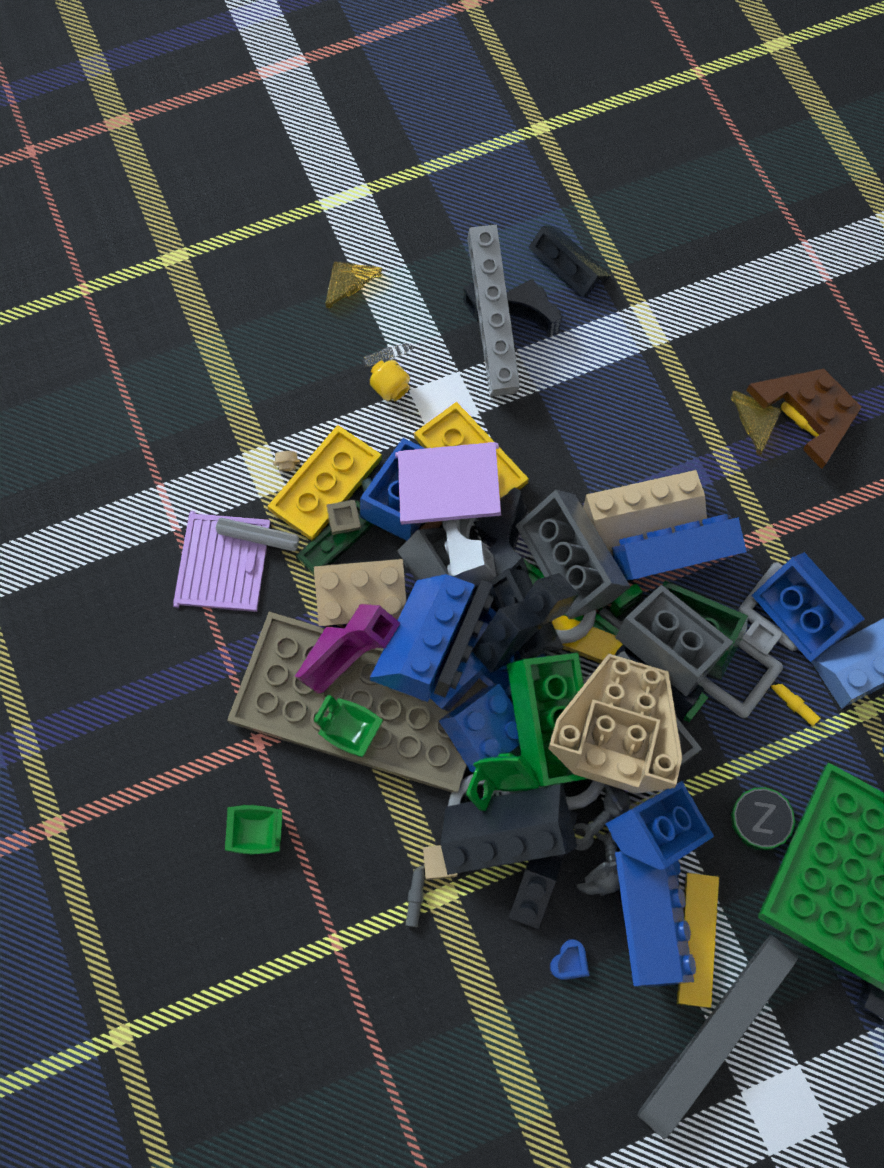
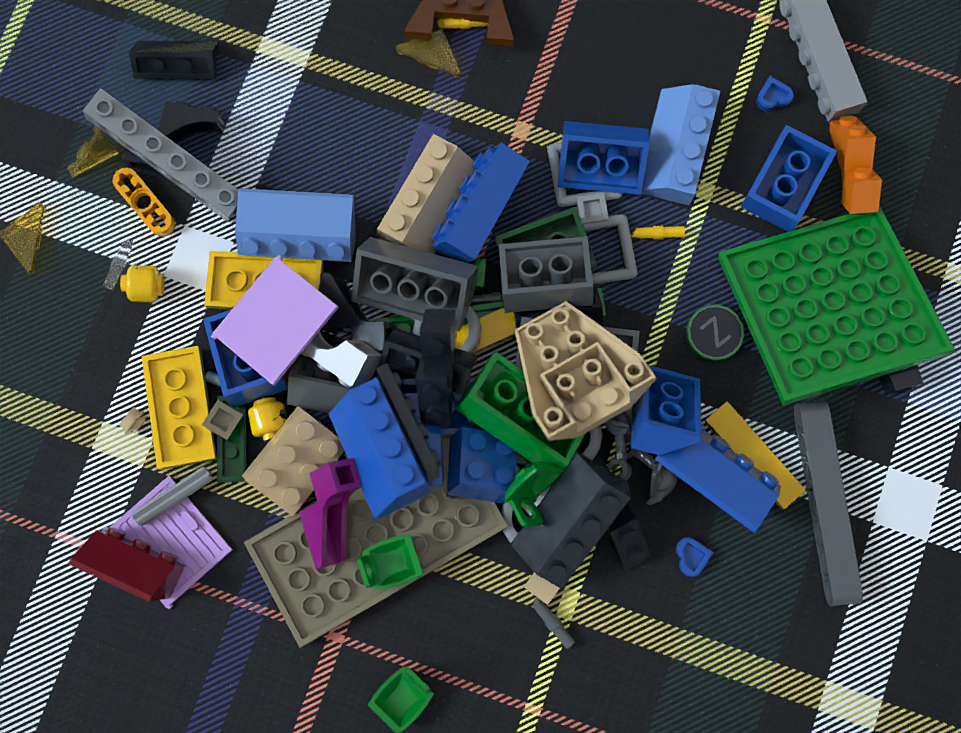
camera: 45 degrees left, 10 degrees up
(181, 547) = (129, 564): none -> dark red slope
(374, 545) = (266, 417): none -> yellow head
(449, 268) = (93, 153): none -> clear yellow tile
(452, 340) = (132, 198): none -> light orange beam
(532, 438) = (295, 225): none -> medium blue slope

